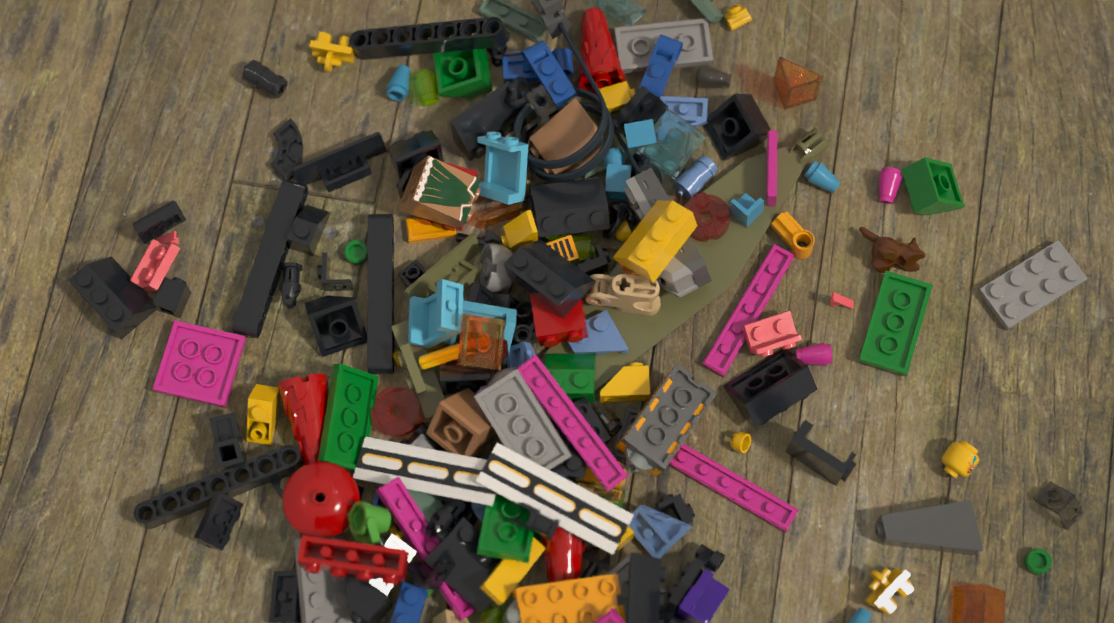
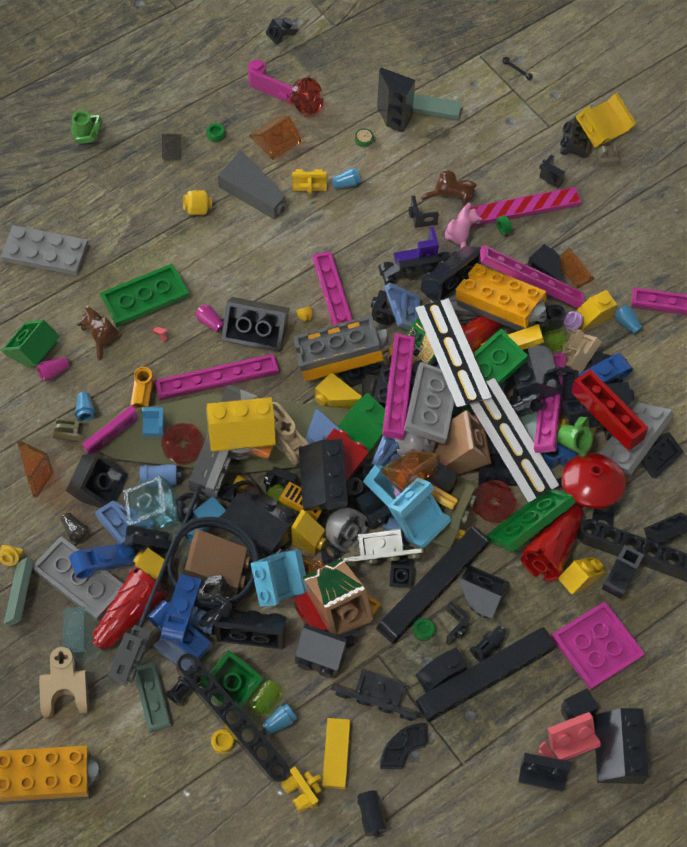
camera: 140 degrees left, 10 degrees down
(334, 100) = (336, 753): none -> yellow tile
(538, 522) = (477, 343): black piece -> none
(640, 134) = (167, 518): dark azure panel -> none
(771, 333) = (222, 346): coral bracket -> none
(818, 458) = (274, 273): black panel -> none

